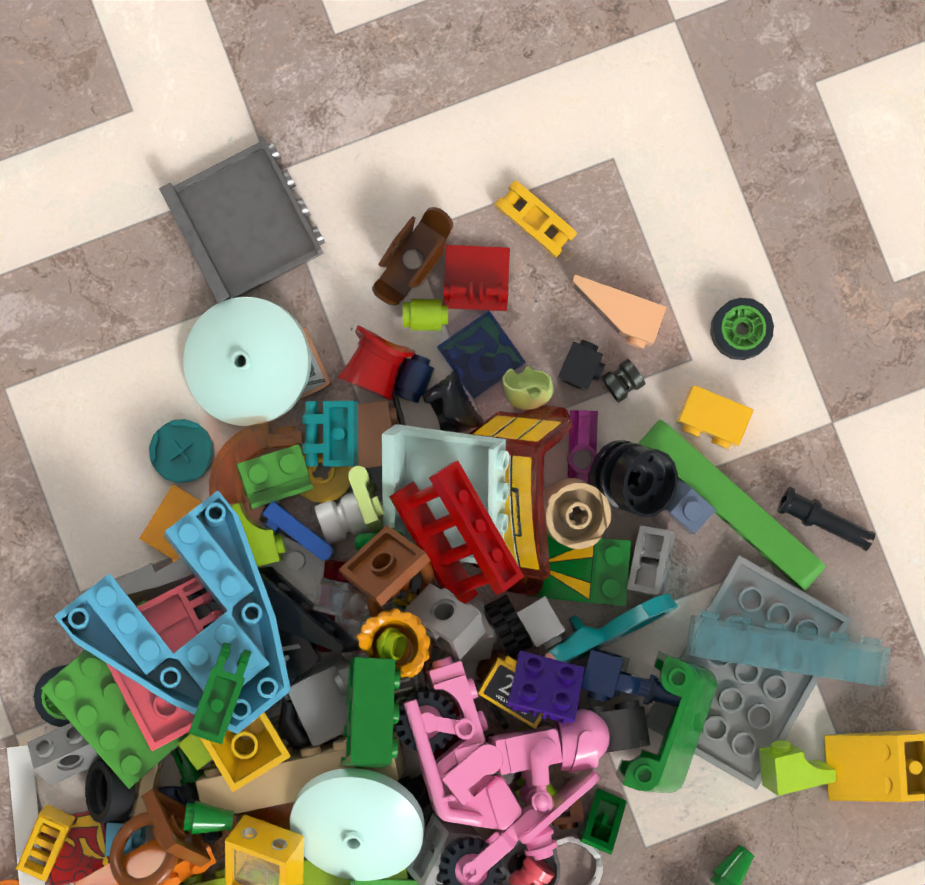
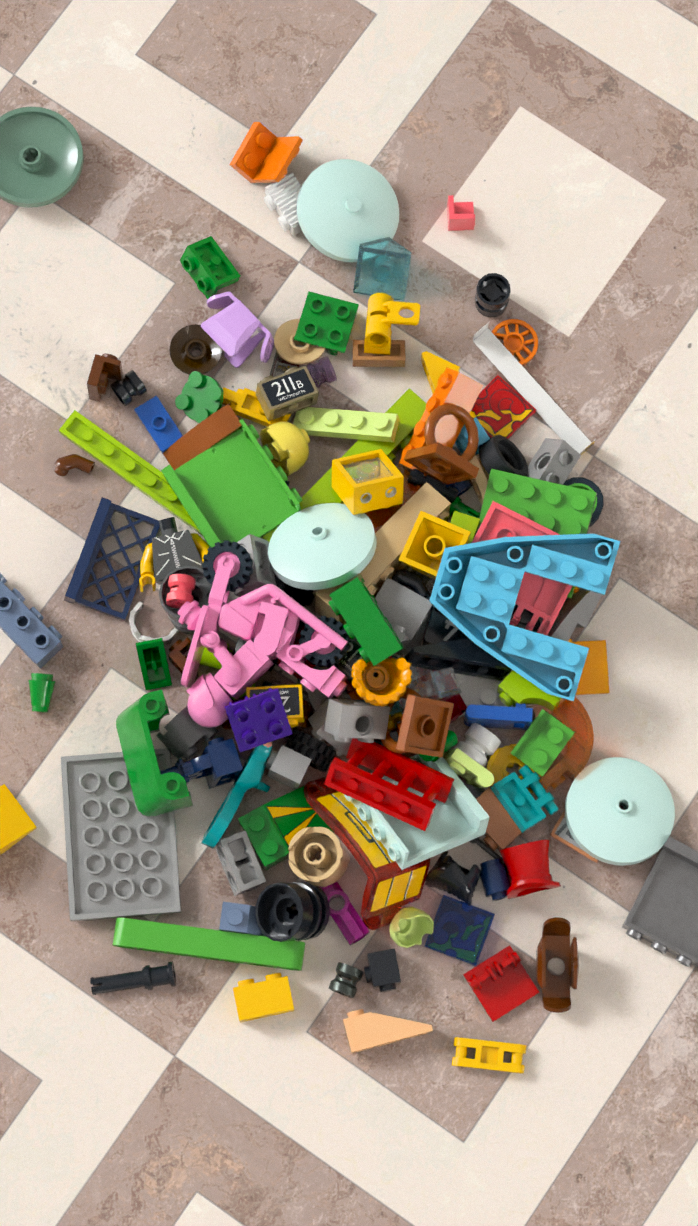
camera: 145 degrees right, 10 degrees down
(54, 823) = (522, 416): yellow slope -> none
(181, 451) = (620, 719): teal tile -> none
(207, 818) = (425, 483): green cone -> none
(219, 698) = (473, 561): green hinge -> none
(391, 644) = (382, 676): lime plate -> none
(425, 314) = (519, 930): lime brick -> none
(752, 315) = (271, 1077): wheel -> none
(788, 650) = (102, 865): clear light blue brick -> none
(788, 771) = (46, 783): lime arch -> none

